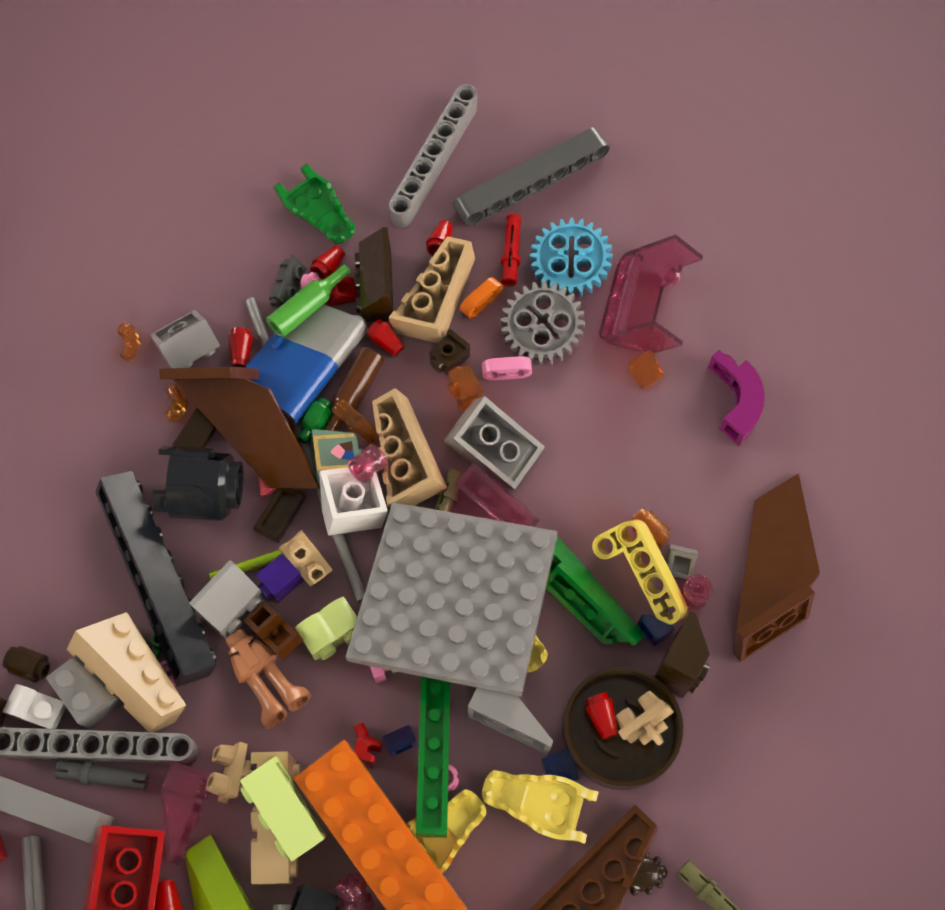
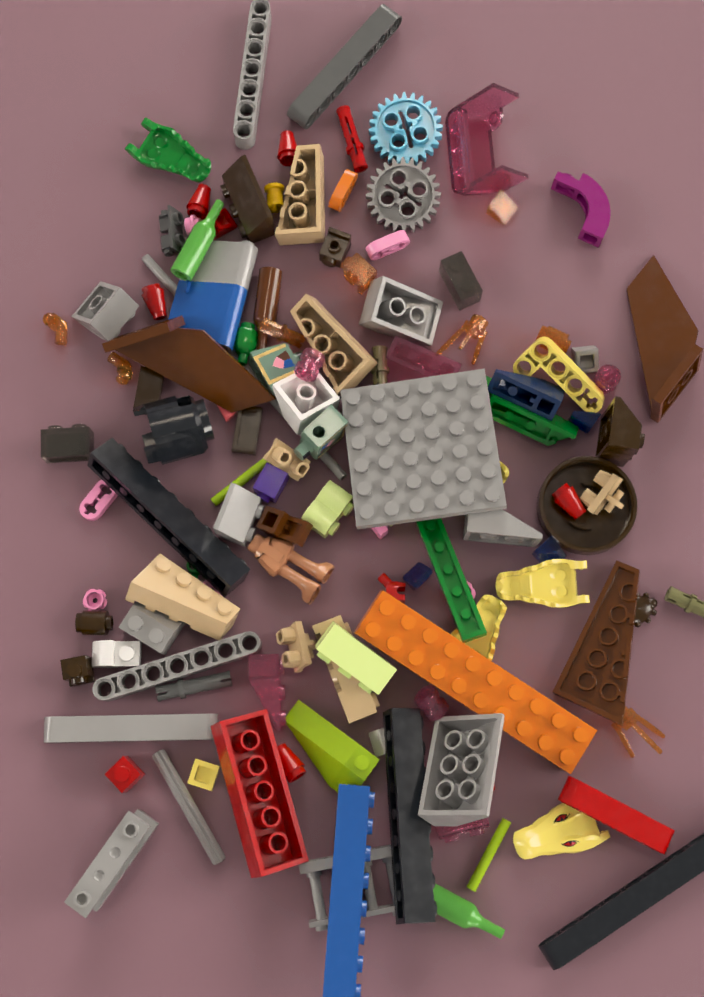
camera: 20 degrees left, 10 degrees up
(36, 633) = (92, 594): none -> bright pink plate
(67, 883) = (203, 774): none -> light yellow plate
(83, 462) = (66, 444): none -> clear smoke piece
(92, 534) = (94, 496): none -> bright pink beam
(352, 543) = (321, 434): none -> sand green torso
(385, 338) = (275, 252): red cone -> none
(406, 281) = (274, 196): none -> yellow bush
(566, 486) = (473, 328): none -> clear orange plant
(571, 430) = (460, 280): none -> clear smoke piece
(599, 575) = (527, 392): none -> dark blue slope

